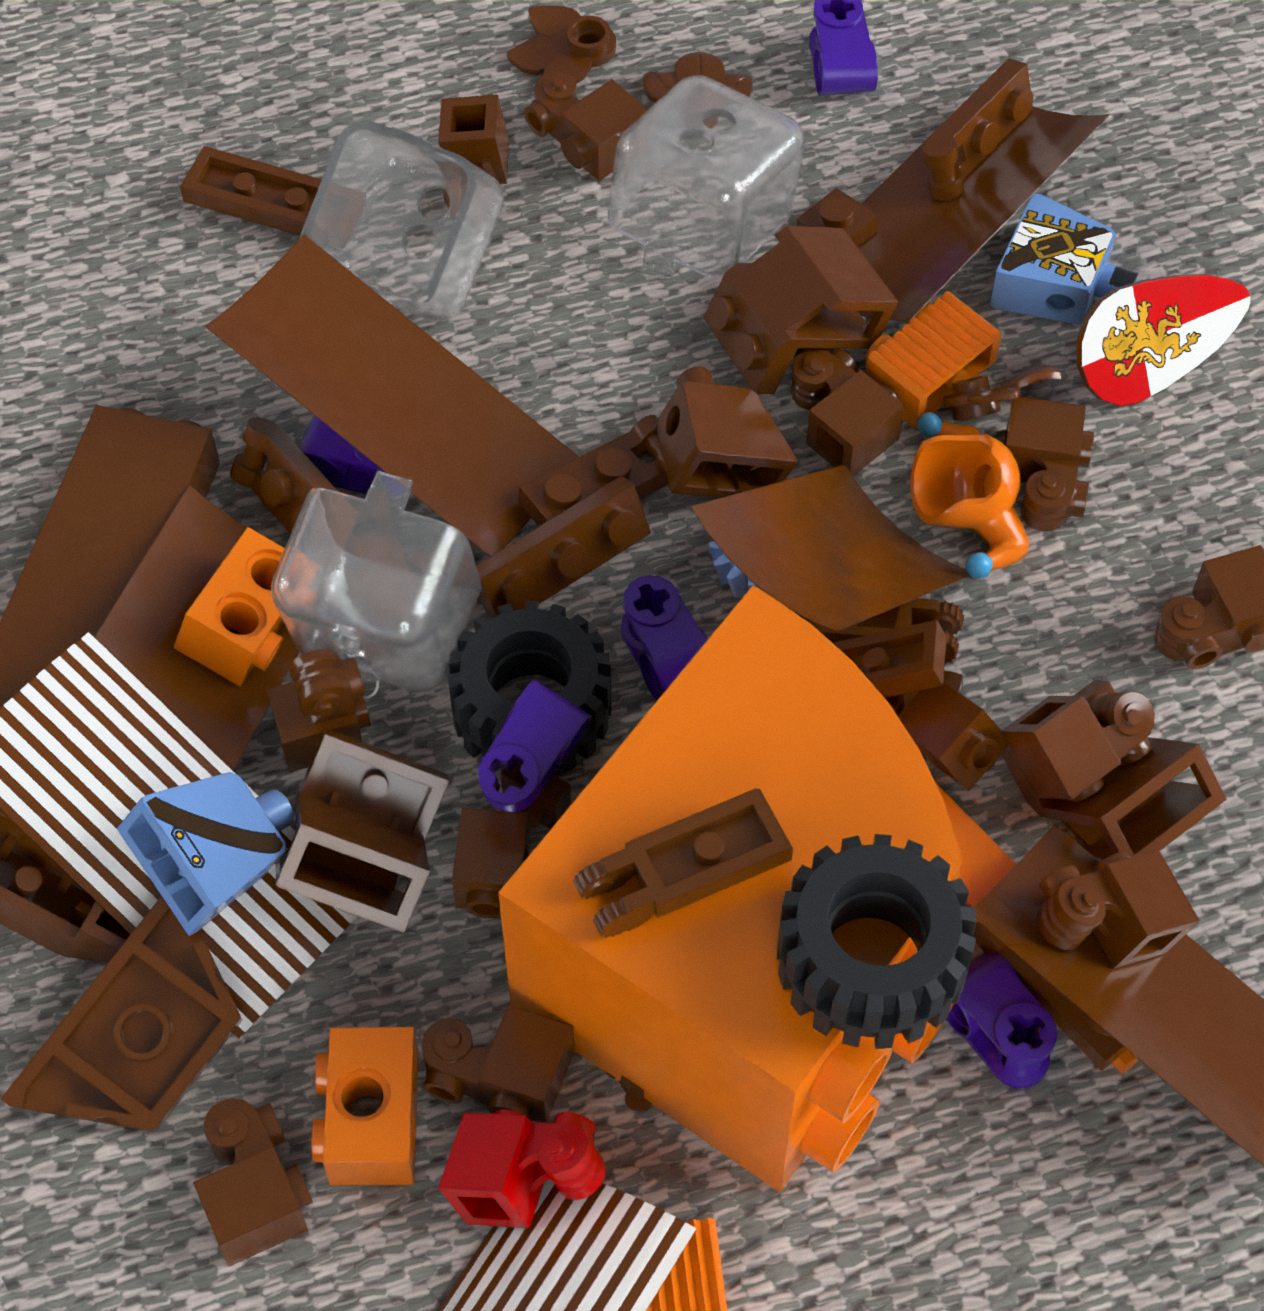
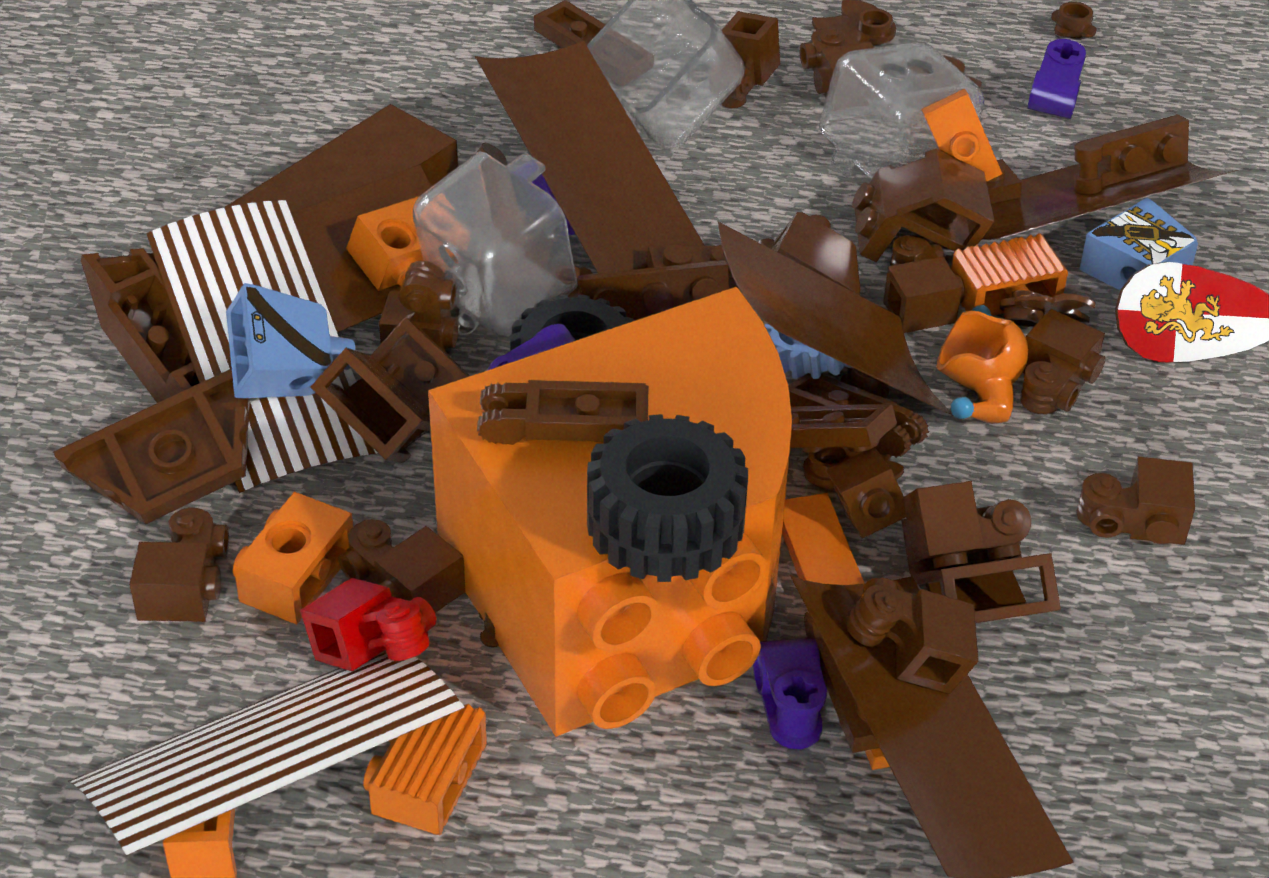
camera: 25 degrees right, 15 degrees down
(804, 193) = (961, 133): none -> orange plate

